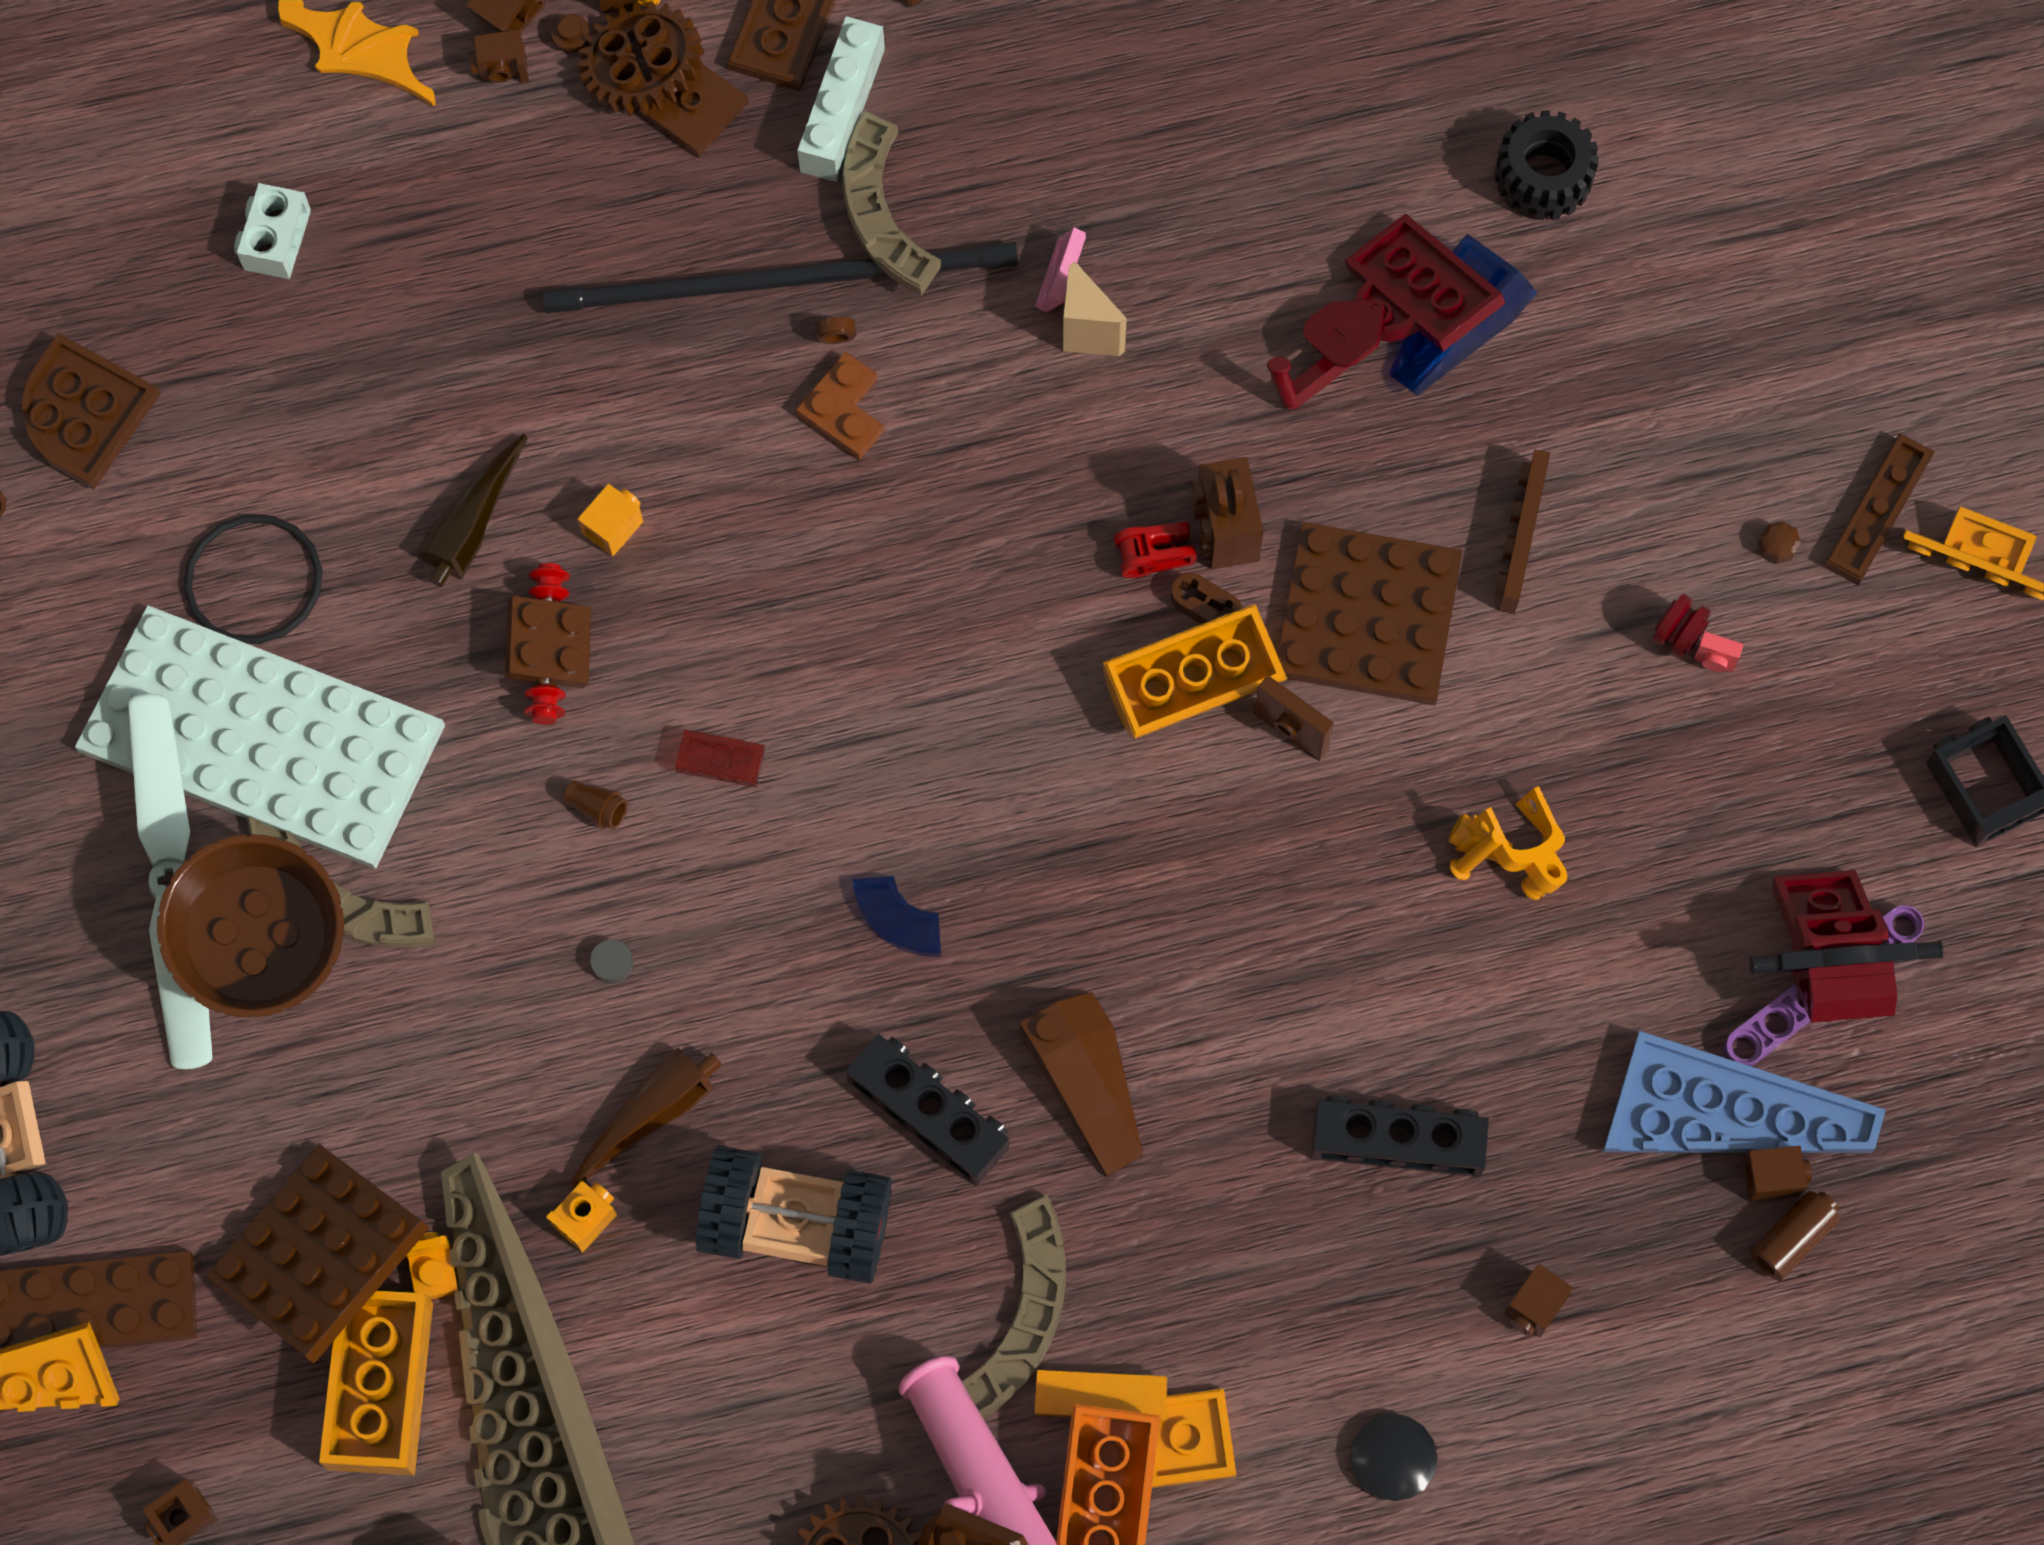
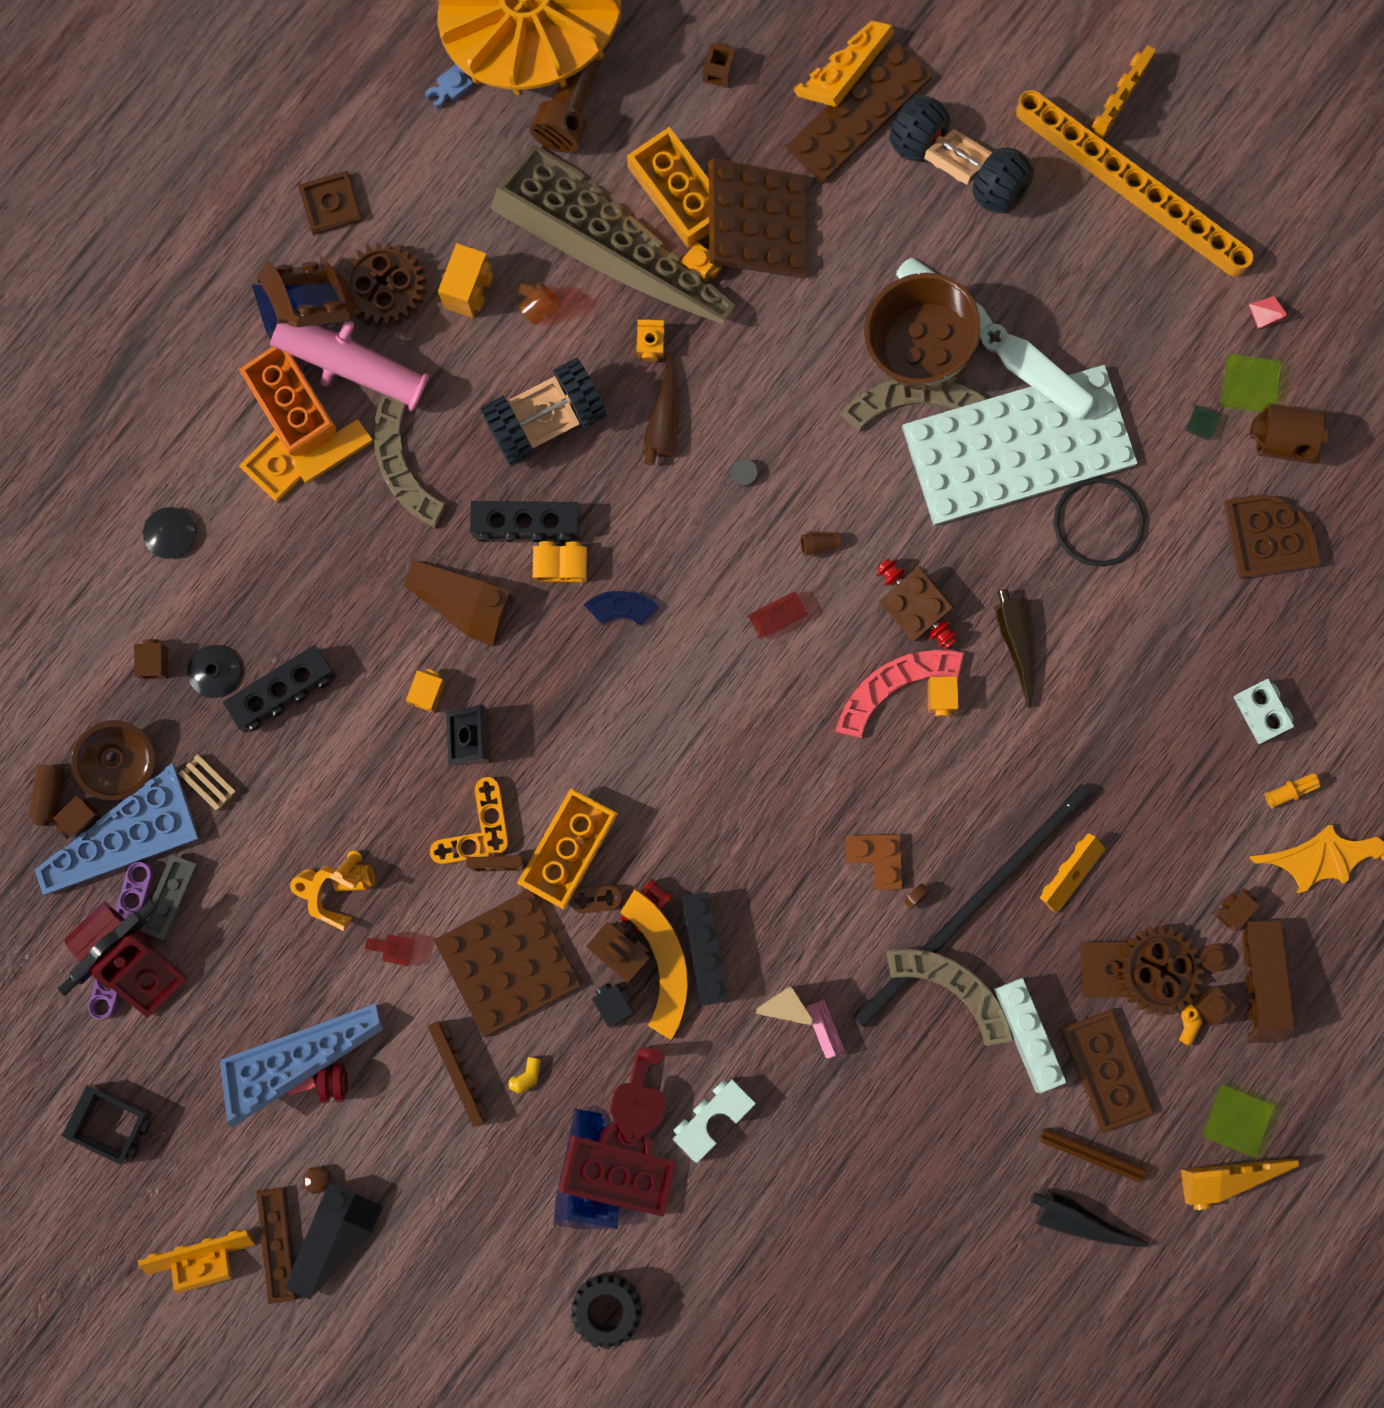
camera: 145 degrees right, 10 degrees up
(28, 596) = (1202, 422): none -> clear green tile
(323, 131) = (1292, 790): none -> light orange axle
(642, 227) = (1072, 873): none -> light orange tile
(655, 589) = (890, 678): none -> coral tile
(680, 1374) = (539, 302): none -> clear orange piece
(750, 1472) = (465, 281): none -> light orange brick
(928, 1022) = (559, 562): none -> light orange brick
(1125, 451) = (704, 948): none -> black brick
(1176, 464) = (669, 958): none -> light orange tile
(1209, 900) = (468, 736): none -> black slope
(1218, 994) = (426, 690): none -> light orange brick
(1237, 279) = (694, 1136): none -> light aqua arch
(1280, 462) = (613, 1004): none -> black brick
(1287, 773) = (482, 839): none -> light orange beam
(1442, 468) = (528, 1078): none -> yellow arm
(1460, 1253) = (223, 680): none -> black dish
(1493, 722) = (394, 950): none -> clear red plate
(1571, 1062) = (191, 766): none -> tan tile
(1678, 1203) = (116, 777): none -> reddish brown dish
(1721, 994) = (169, 896): none -> dark grey plate
(1733, 687) = (274, 1068): none -> medium blue wing
(1800, 467) = (335, 1232): none -> black wedge

